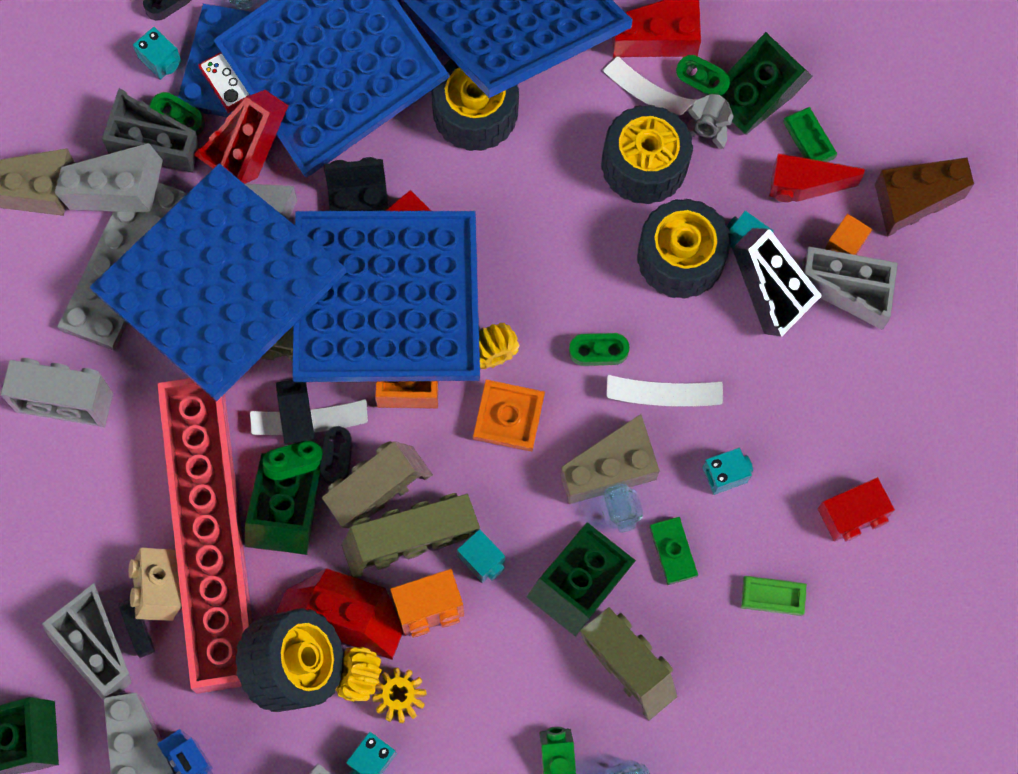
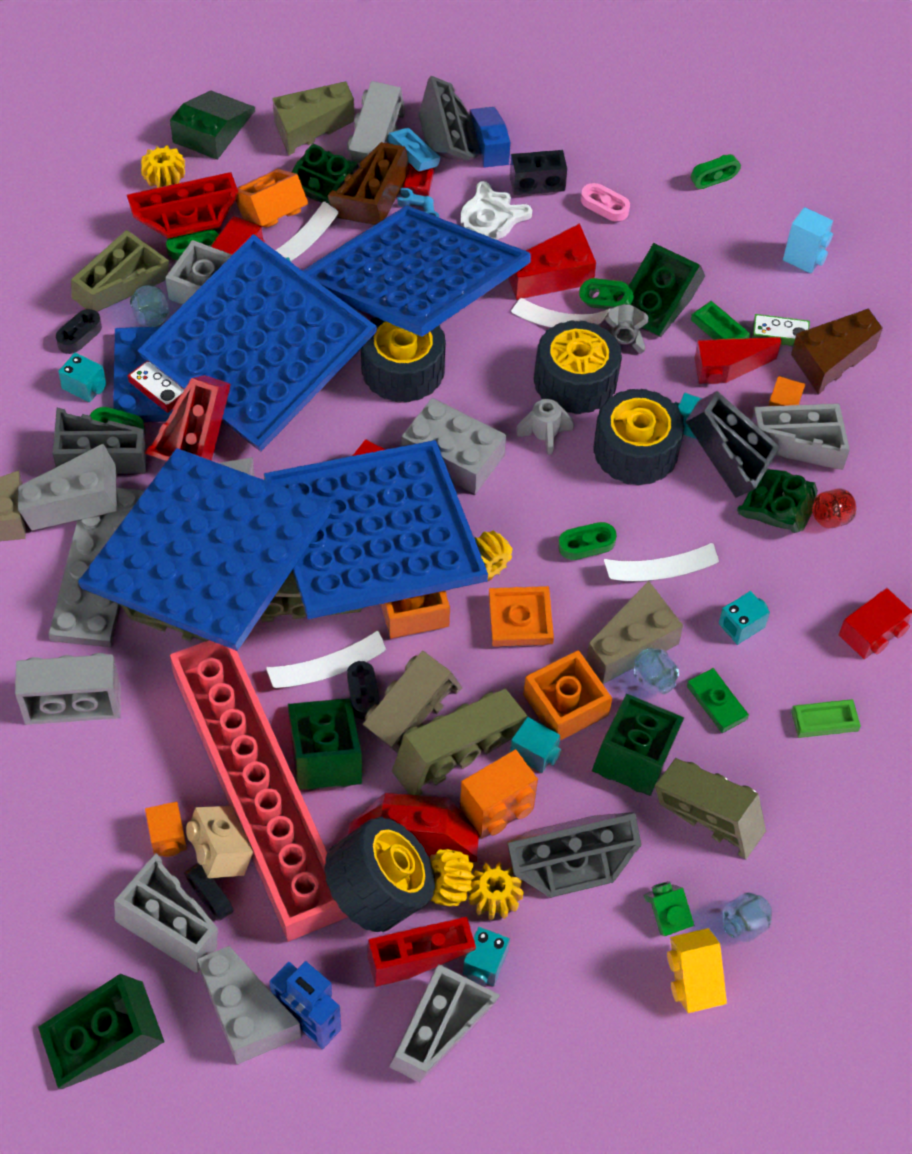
camera: 15 degrees left, 15 degrees down
(113, 556) = (166, 829): none -> orange brick
(294, 411) = (311, 656): black slope -> none
(294, 458) = (321, 700): green plate -> none
(309, 739) = (417, 950): none -> red slope
(356, 185) = (310, 441): black bracket -> none
(482, 677) = (575, 853): none -> dark grey wedge
(504, 215) = (467, 445): none -> light grey brick
(525, 514) = (567, 695): none -> orange brick
(597, 208) = (545, 422): none -> light grey brick
(806, 353) = (780, 501): none -> dark green slope
(857, 373) = (834, 508): none -> clear red head
(870, 154) = (773, 326): none -> tile
(932, 61) = (808, 240): none -> medium azure brick

